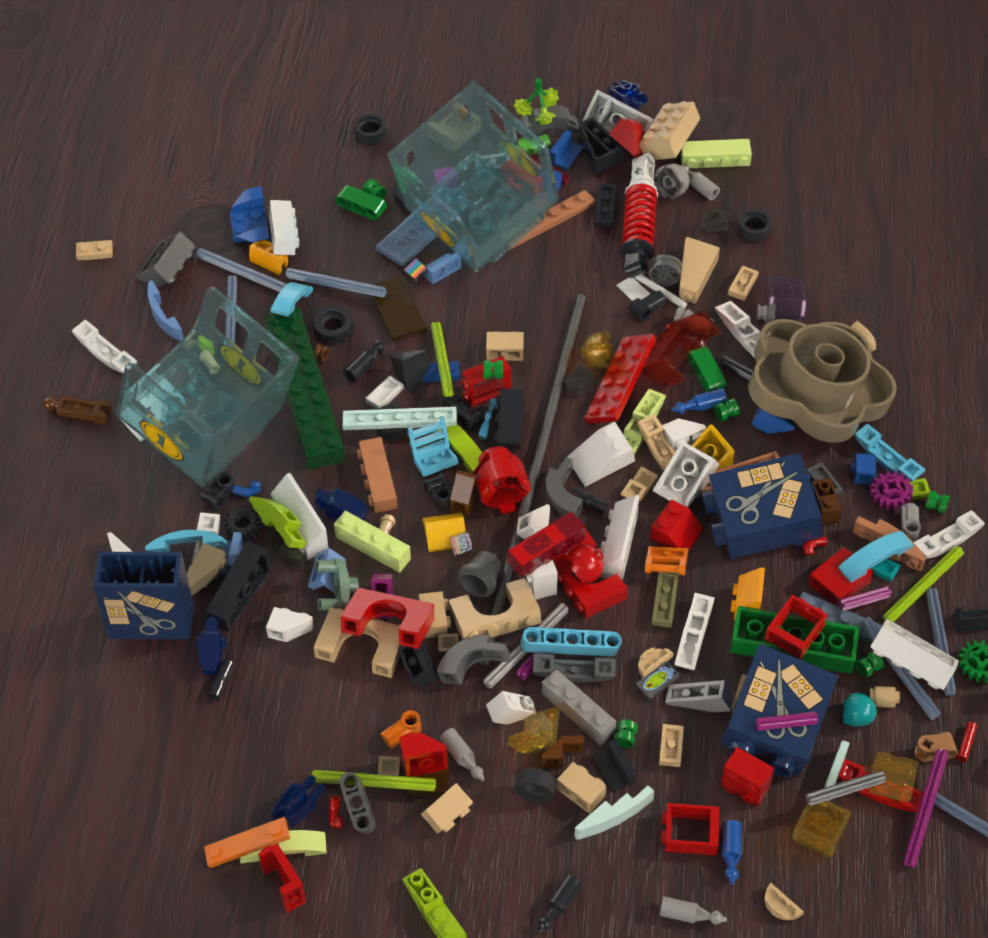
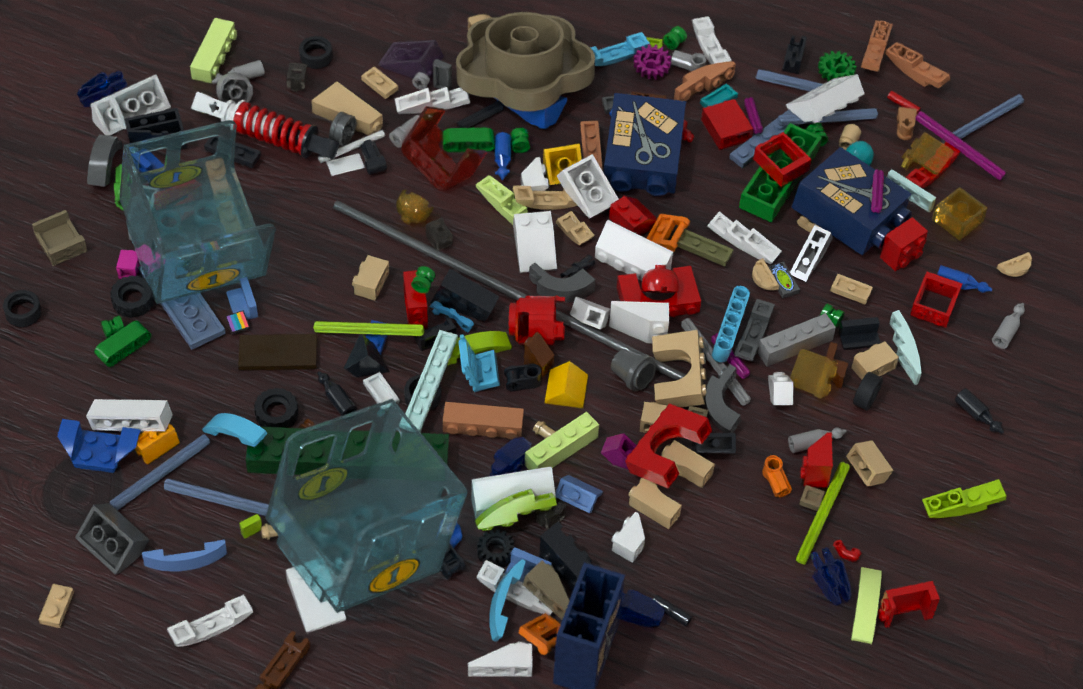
camera: 75 degrees left, 0 degrees up
(246, 842) = (861, 626): orange plate -> none
(336, 282) = (224, 389): sand blue axle -> none
(343, 584) = (605, 481): sand green connector -> none
(350, 796) = (855, 524): dark grey beam -> none
(461, 543) = (589, 377): clear smoke tile -> none
(546, 544) = (642, 298): dark red brick -> none
(547, 99) = (89, 140): lime plant -> none
(620, 379) = (454, 202): red plate -> none
(629, 134) = (164, 98): red slope -> none
(670, 130) = (174, 68): tan brick -> none
(748, 590) = (726, 184): light orange slope -> none
(845, 788) = (939, 181): axle -> none
(863, 468) = (622, 70): blue brick -> none
(874, 553) = (723, 89): medium azure slope -> none
(923, 584) = (751, 77): lime axle -> none

